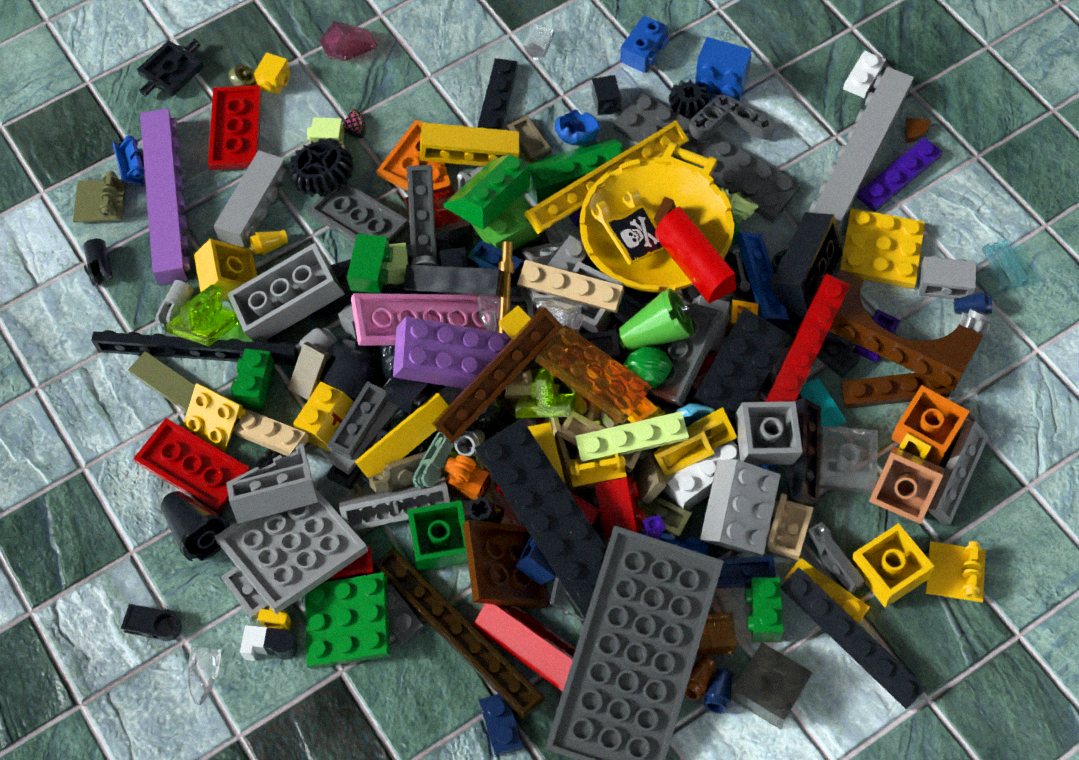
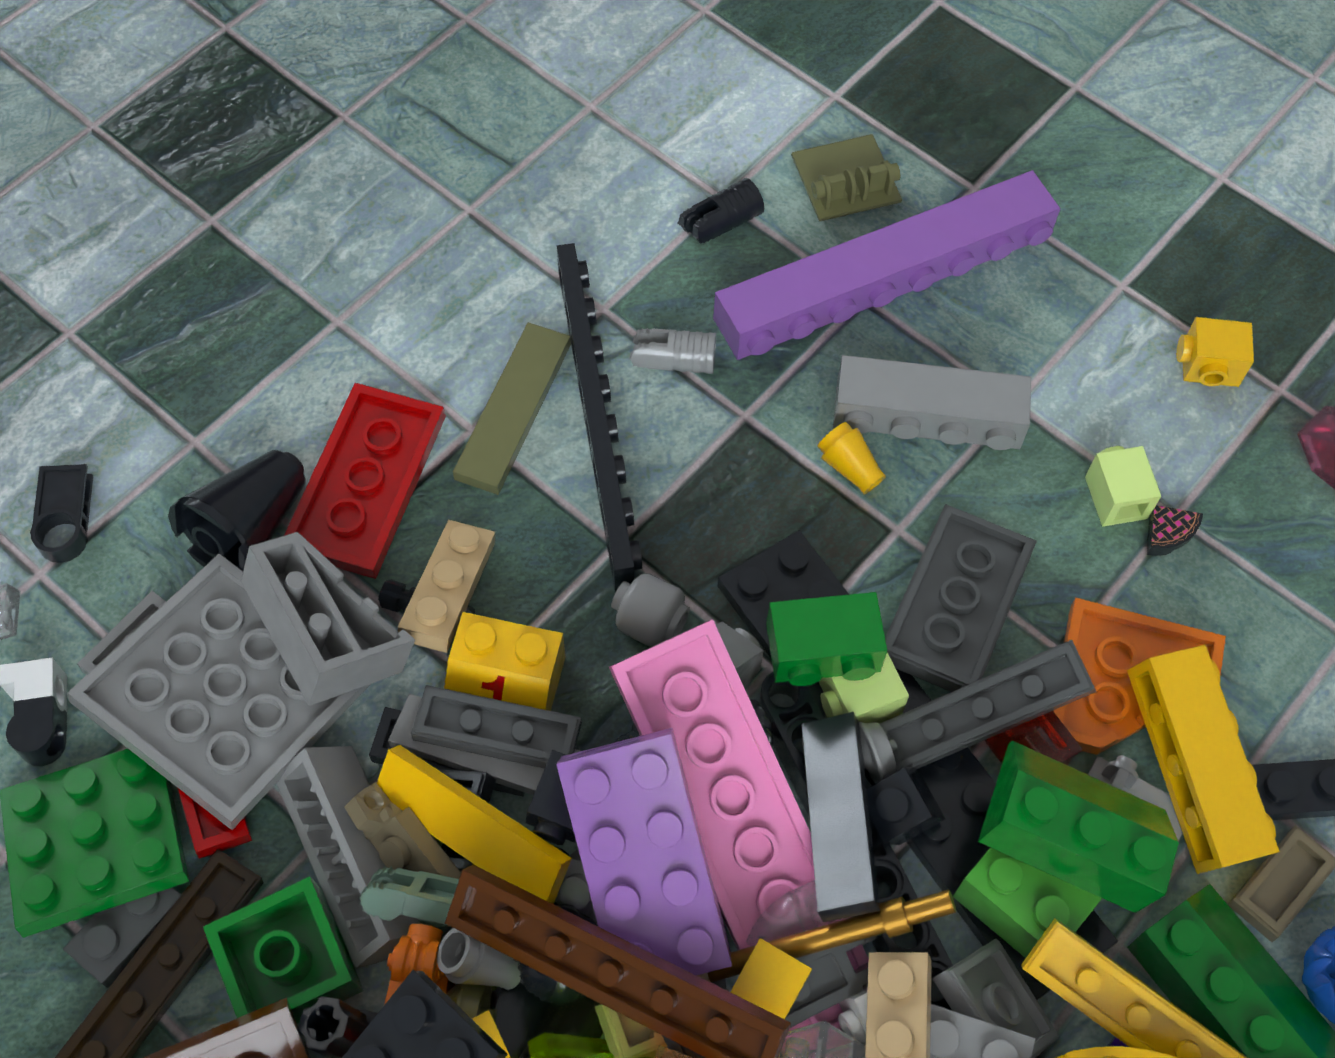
camera: 70 degrees right, 0 degrees up
(128, 161) = (936, 187): blue hinge -> none
(170, 68) = (1155, 191): black plate -> none
(203, 318) = (645, 401): clear neon green bracket -> none
(212, 416) = (466, 478): yellow hinge -> none
(224, 266) = (765, 409): yellow slope -> none
(234, 127) = (1076, 328): red plate -> none
(242, 76) = (1183, 303): olive hat -> none
(253, 379) = (552, 522): green brick -> none
(269, 619) = (72, 719): yellow plate -> none
(285, 294) = (734, 516): light grey brick -> none
(308, 370) = (590, 606): tile -> none
(320, 167) = (1041, 496): black gear -> none
(349, 367) = (581, 676): black brick -> none
(488, 257) = (931, 867): dark blue plate -> none

